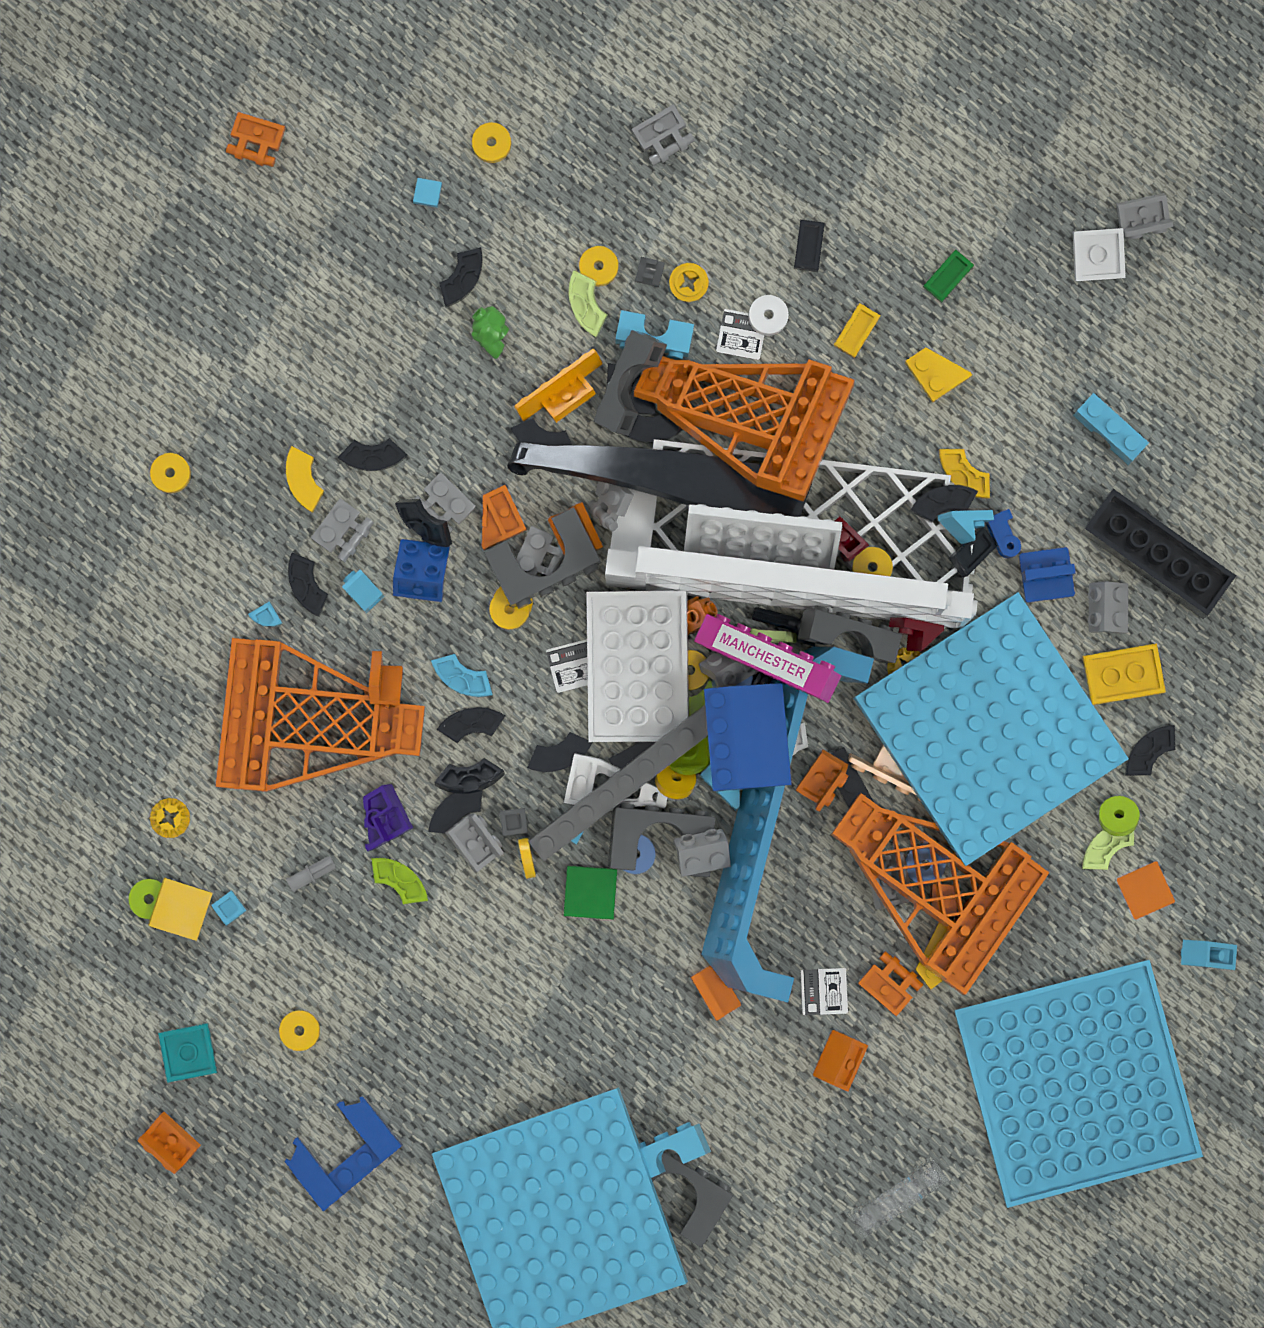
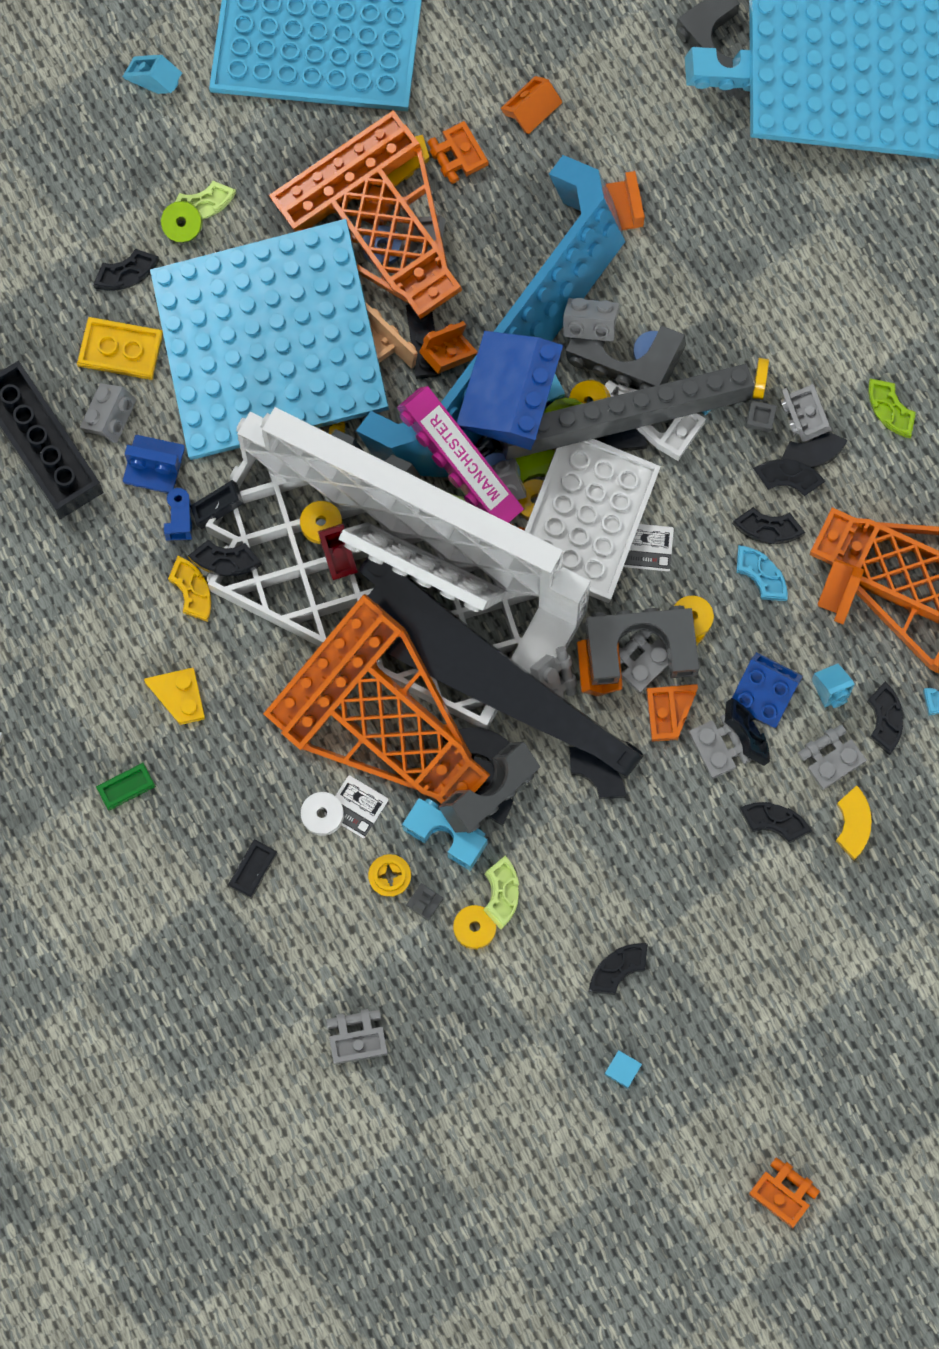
camera: 160 degrees left, 10 degrees down
(384, 816) = (884, 469): dark purple slope -> none
(489, 330) = (610, 899): bright green head -> none
(494, 153) = (541, 1085): yellow piece -> none
(558, 756) = (693, 466): black tile -> none
(563, 391) = (559, 808): light orange bracket -> none
(590, 892) = (711, 331): green tile -> none
(824, 991) = (522, 170): sticker -> none
(857, 330) = (239, 766): yellow tile -> none
(962, 523) = (216, 529): medium azure slope -> none
(1118, 433) = (31, 574): medium azure arch -> none
(1145, 890) = (185, 153): orange sticker -> none

